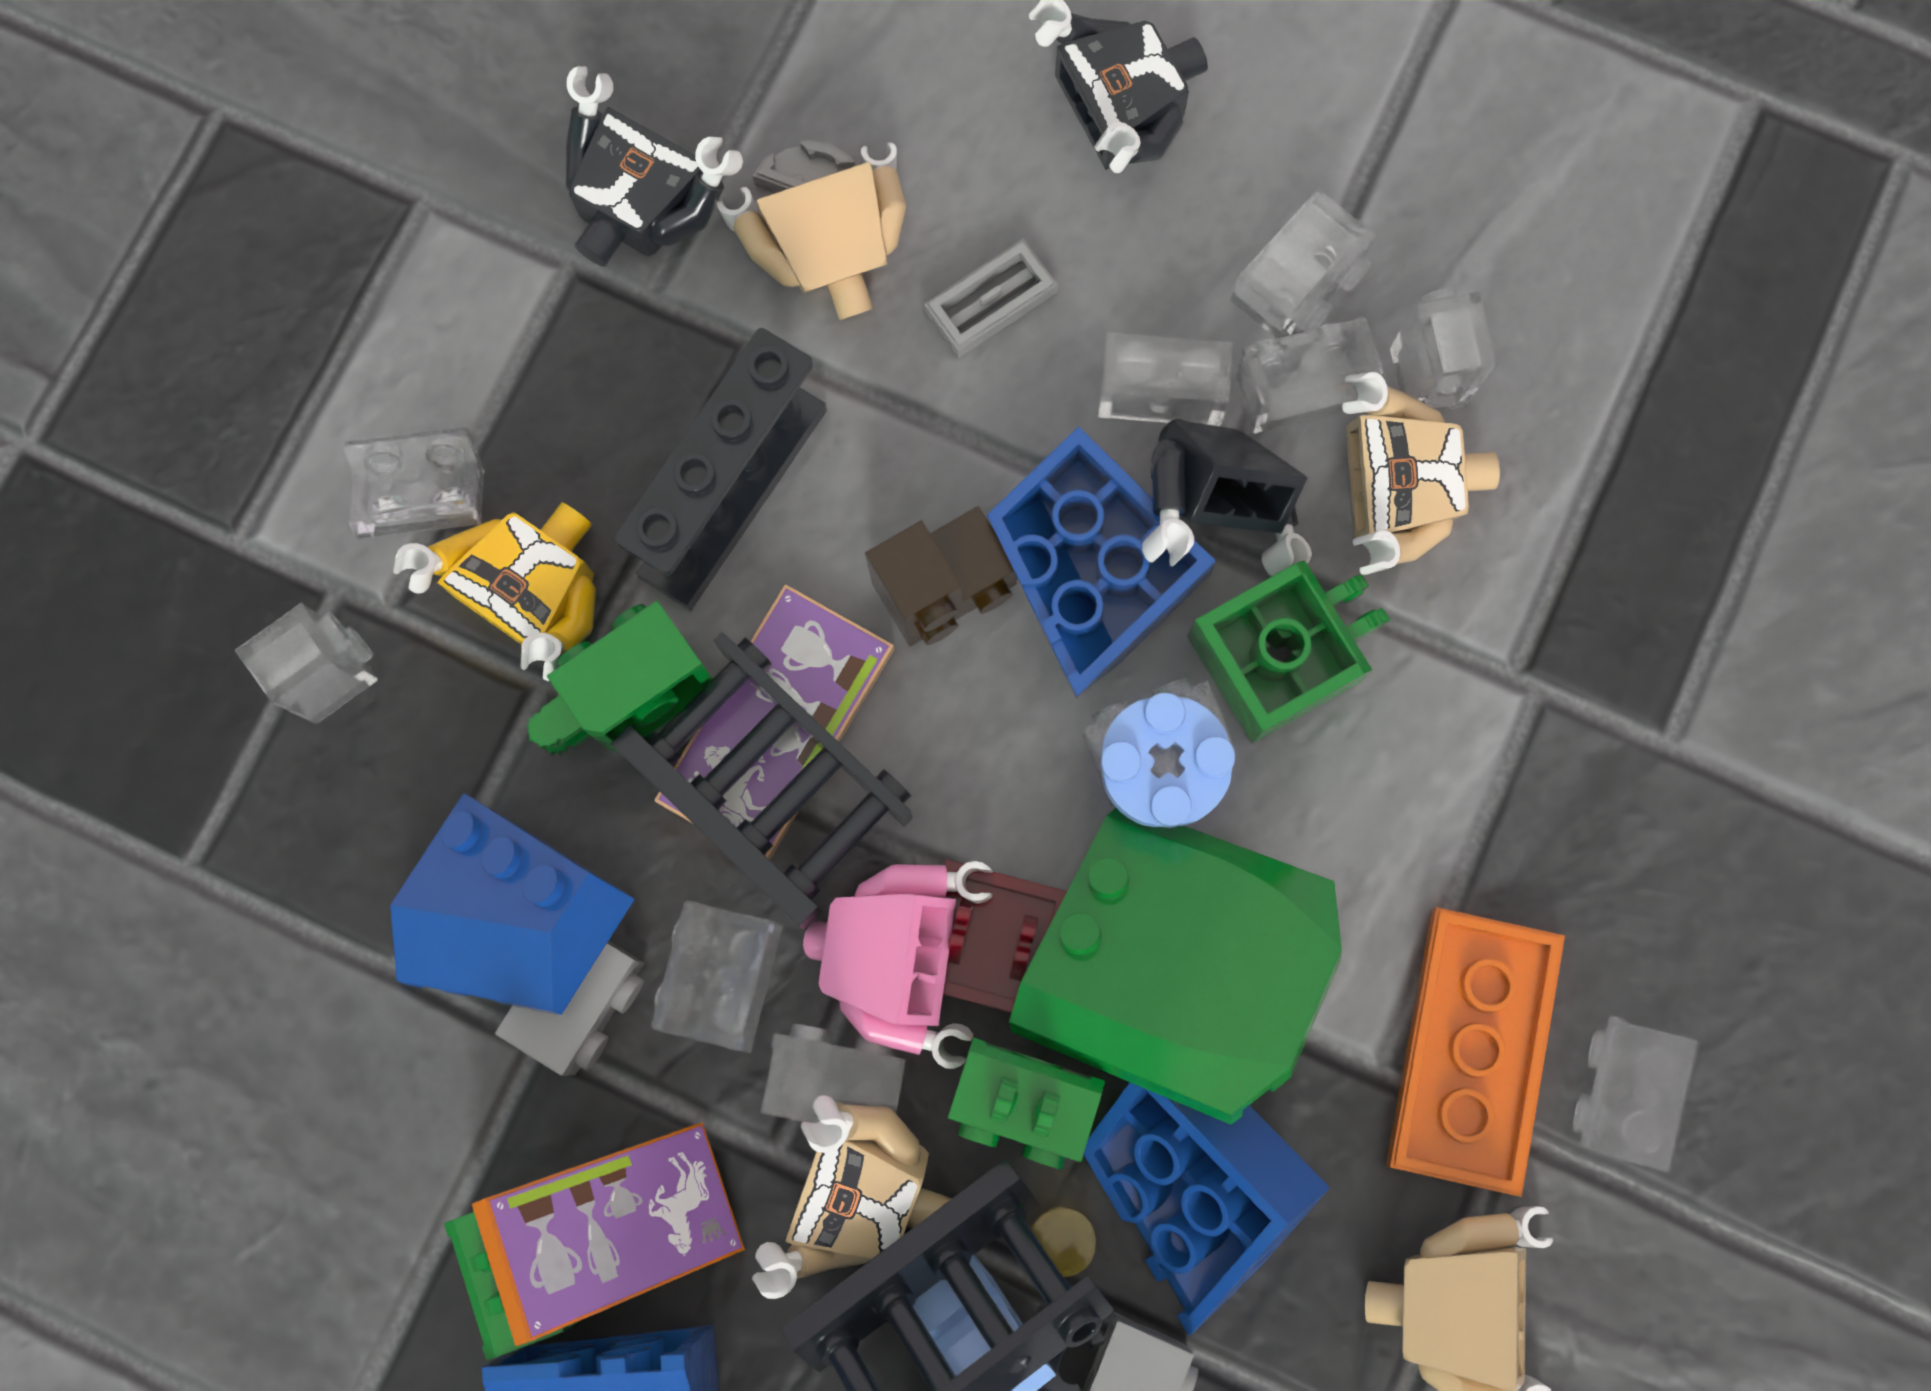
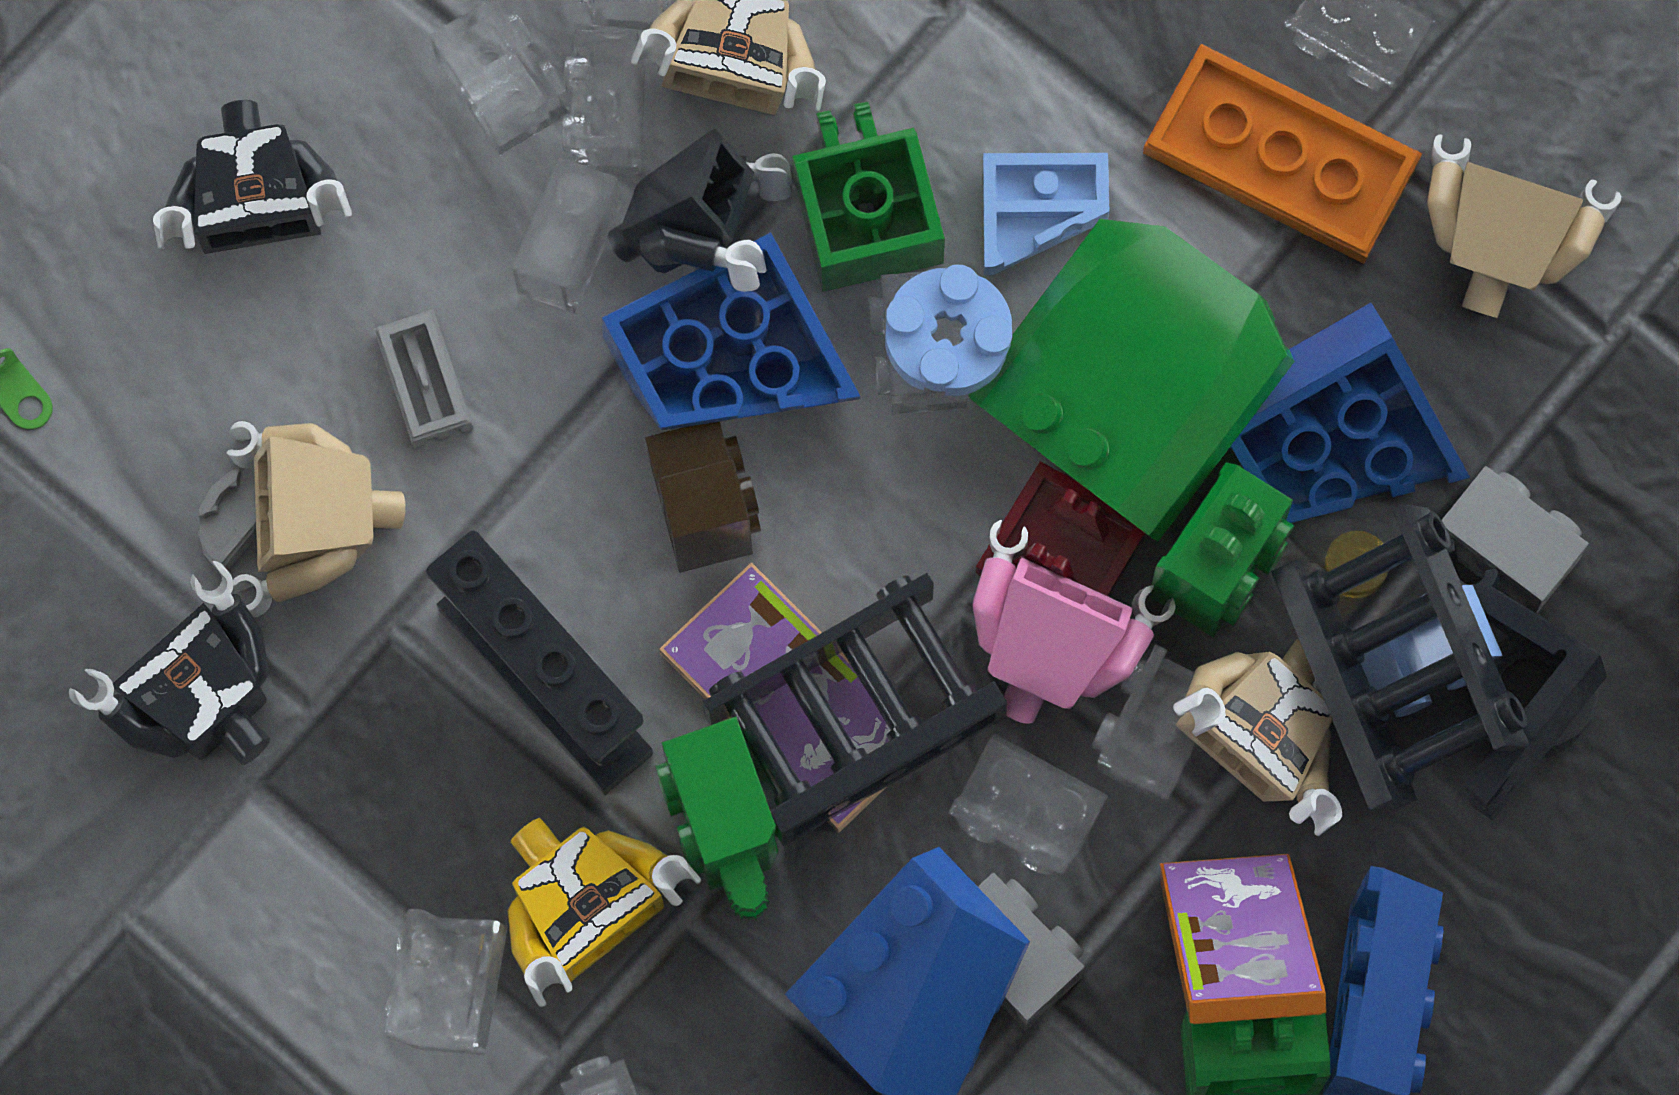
camera: 75 degrees left, 5 degrees down
(1342, 819) = (1039, 202): none -> light blue wing

